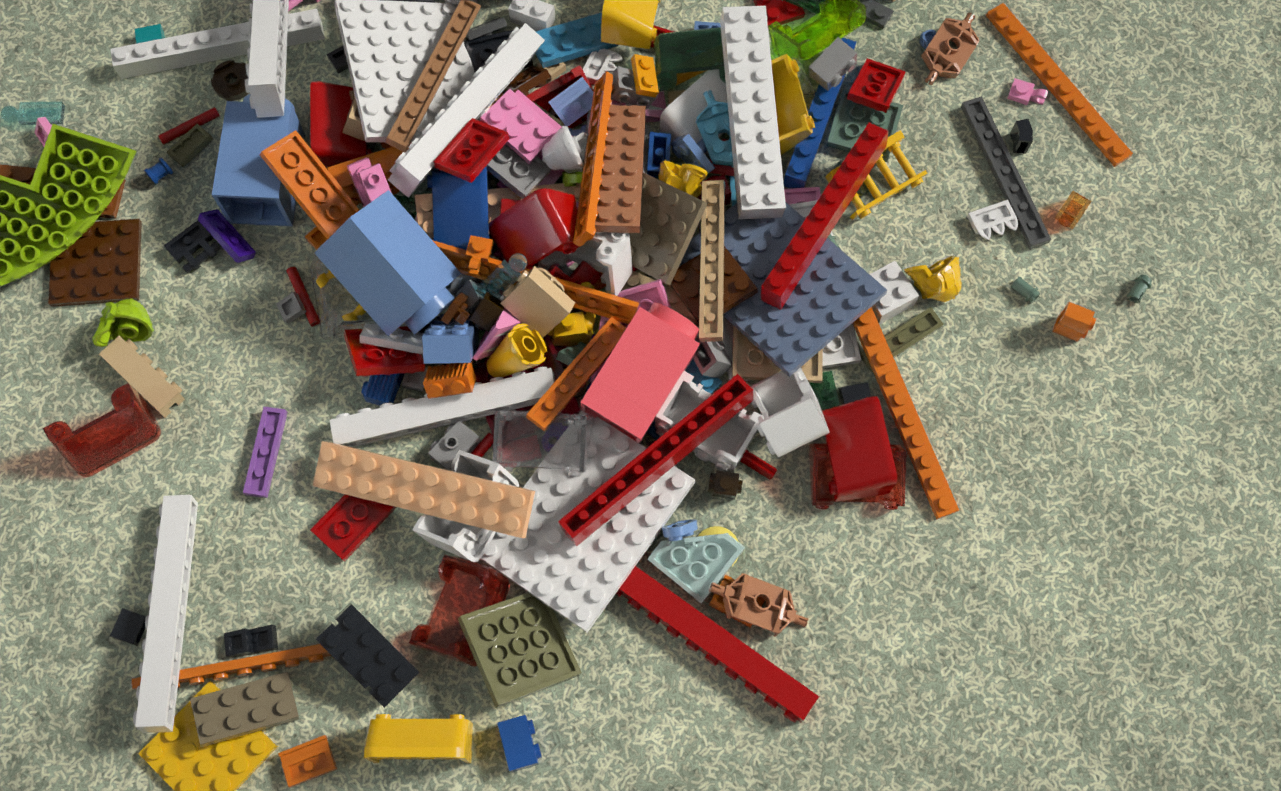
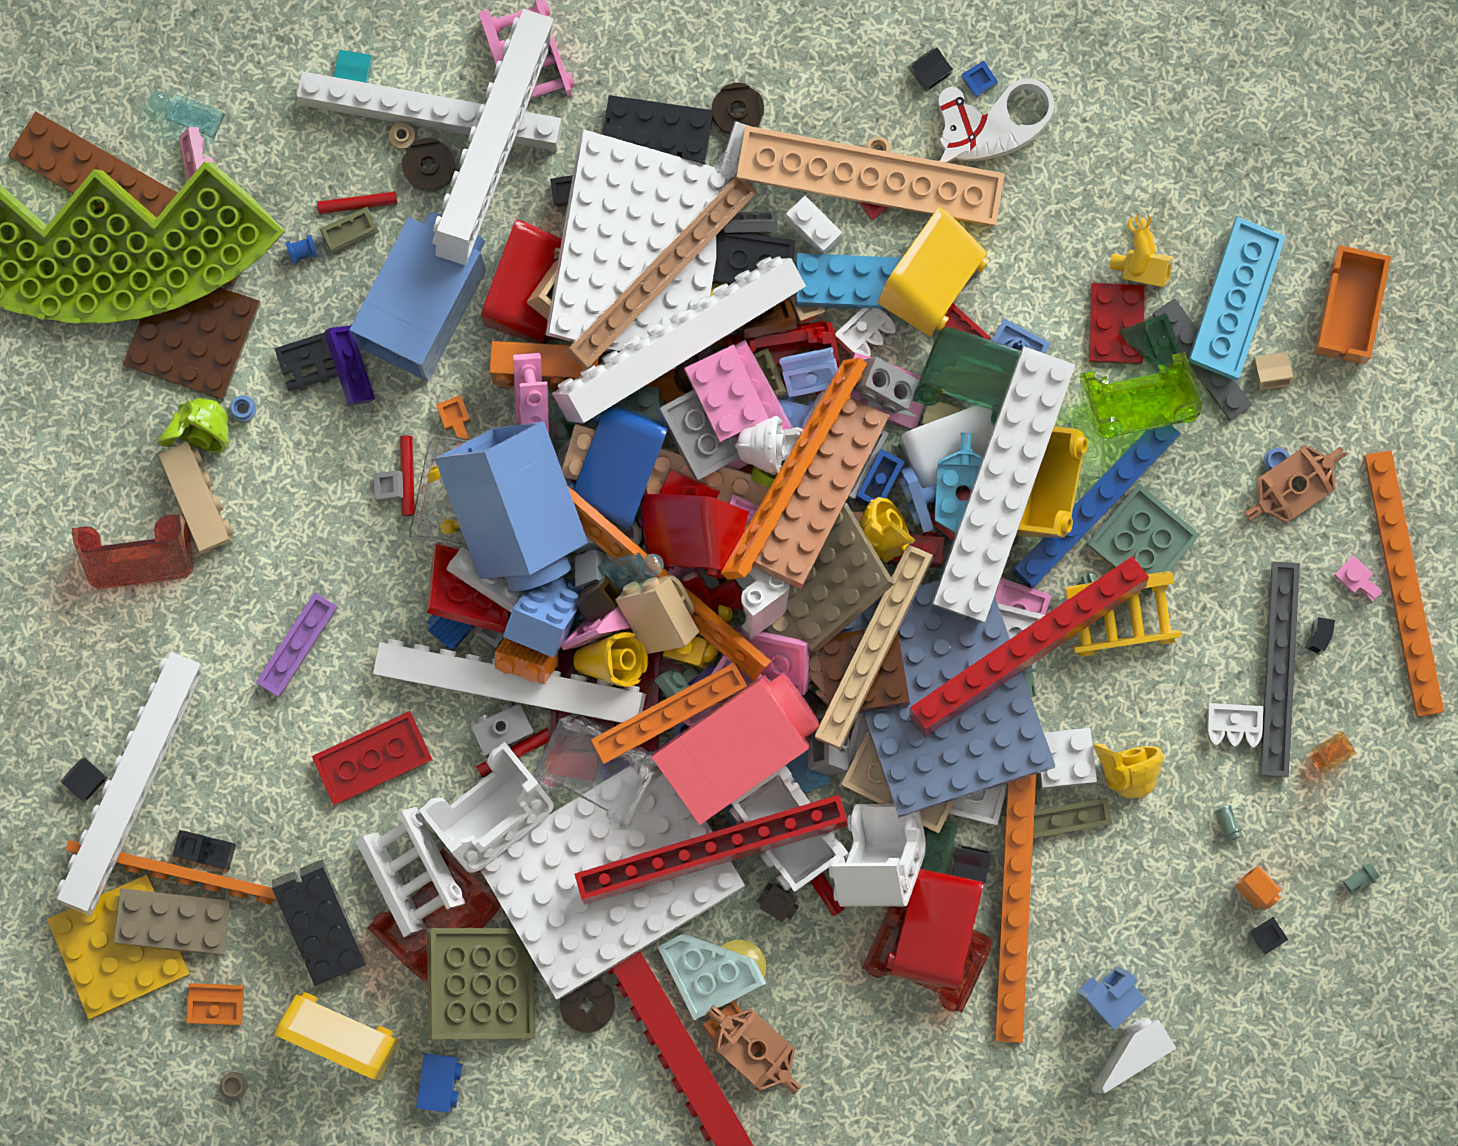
camera: 25 degrees right, 10 degrees up
(153, 293) = (237, 402): none -> medium blue plate
(208, 72) = (402, 143): none -> tan plate
(309, 183) = (465, 366): orange plate -> none
(406, 593) = (389, 881): none -> white fence
(424, 489) = (448, 770): light nougat plate -> none
(457, 310) = (564, 585): reddish brown plate -> none
(471, 150) = (657, 407): red plate -> none
(477, 252) = (616, 528): orange plate -> none
(625, 630) = (599, 1014): none -> dark brown plate
(644, 75) = (903, 379): light orange plate -> none
(680, 529) = (706, 931): medium blue plate -> none
(833, 64) = (1131, 459): light grey brick -> none
(876, 85) = (1179, 497): red plate -> none
(1010, 445) = (1113, 997): none -> medium blue plate
(1051, 473) = (1136, 1050): none -> white slope
(1096, 355) = (1268, 935): none -> black plate

